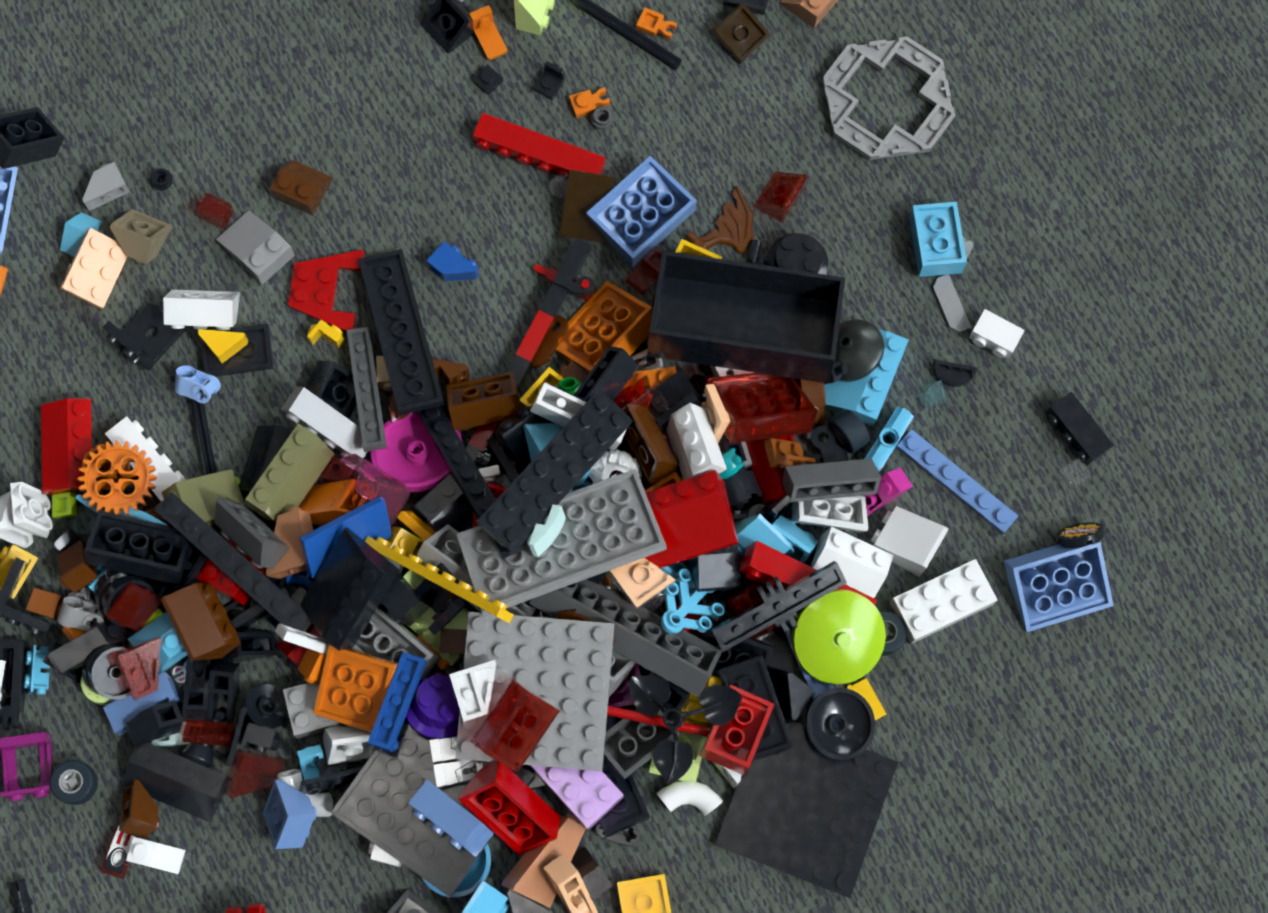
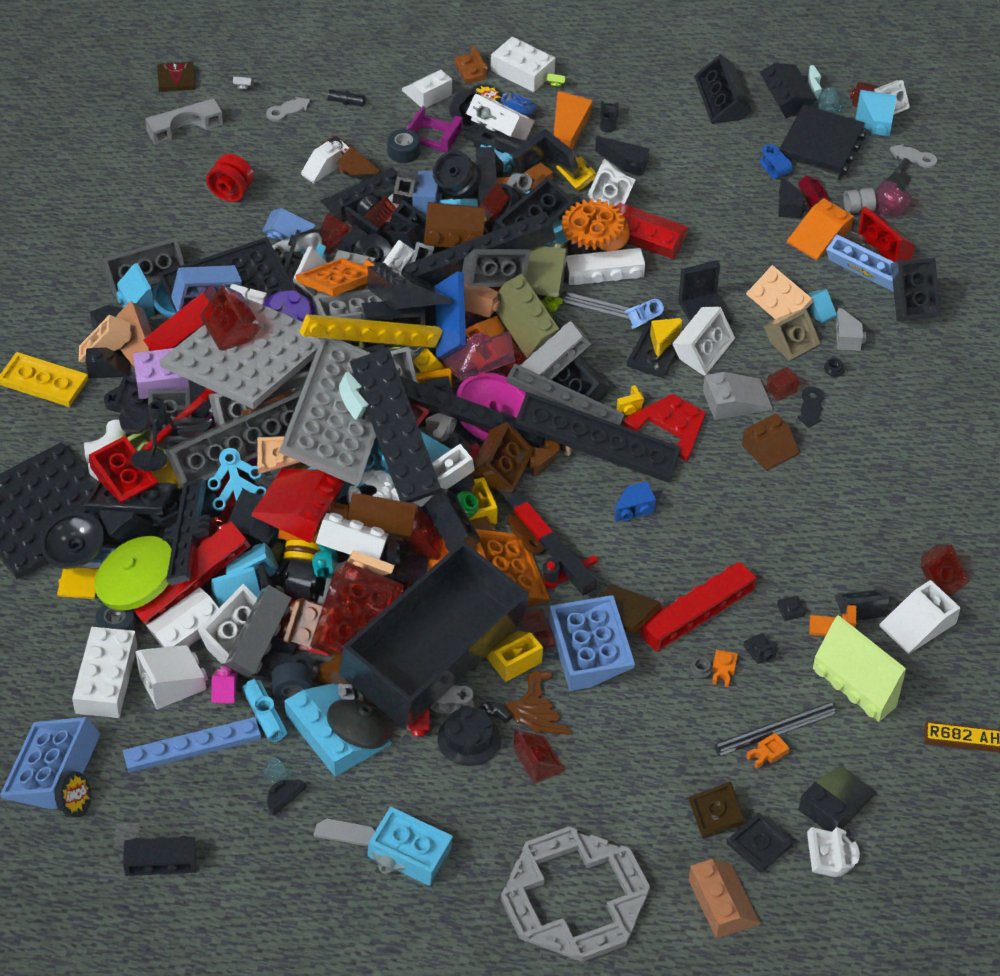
camera: 125 degrees right, 25 degrees down
(141, 668) = (445, 181): clear red wing -> none
(225, 177) = (810, 407): none -> black brick
(397, 702) = (294, 272): blue piece -> none
(474, 689) = (274, 310): white wing -> none
(996, 334) = (291, 843): white brick -> none

